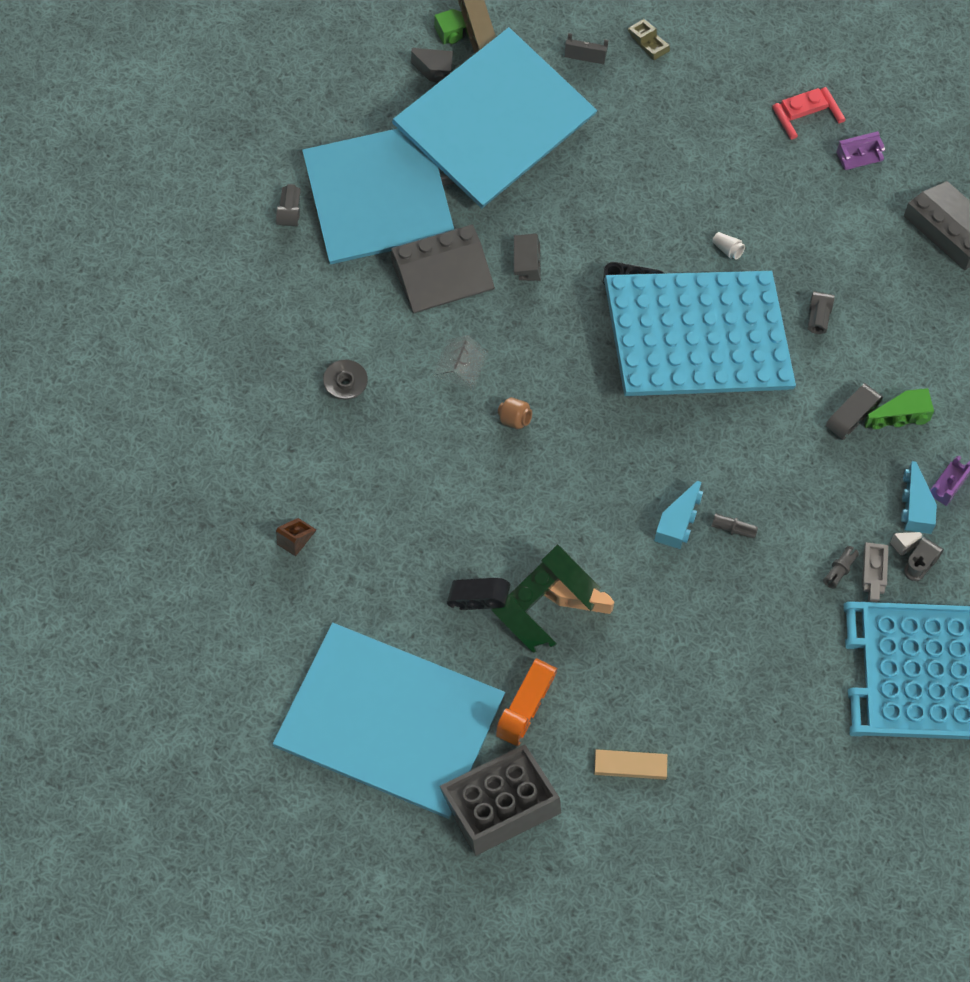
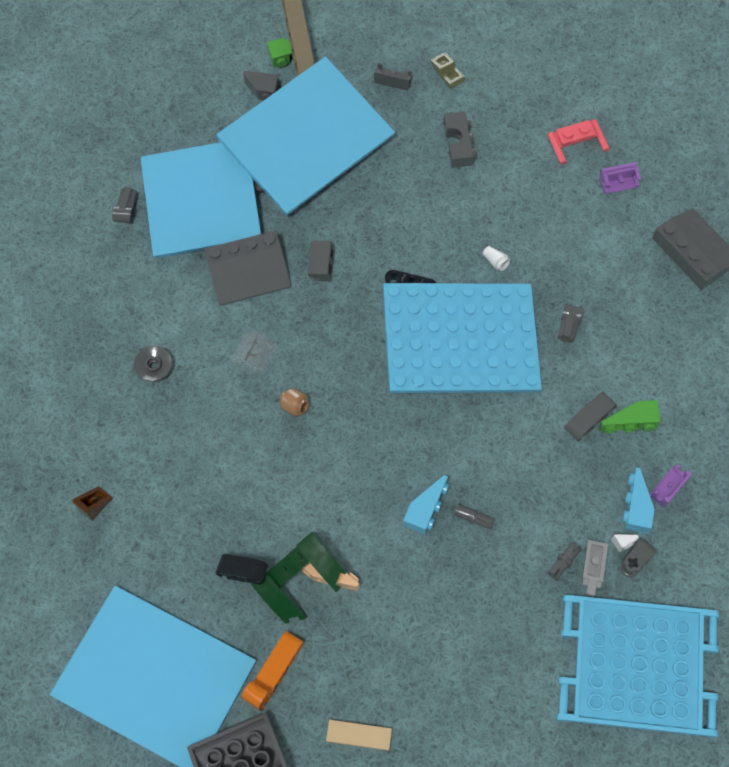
camera: 10 degrees right, 5 degrees up
(669, 101) = (458, 126): none -> dark grey arch

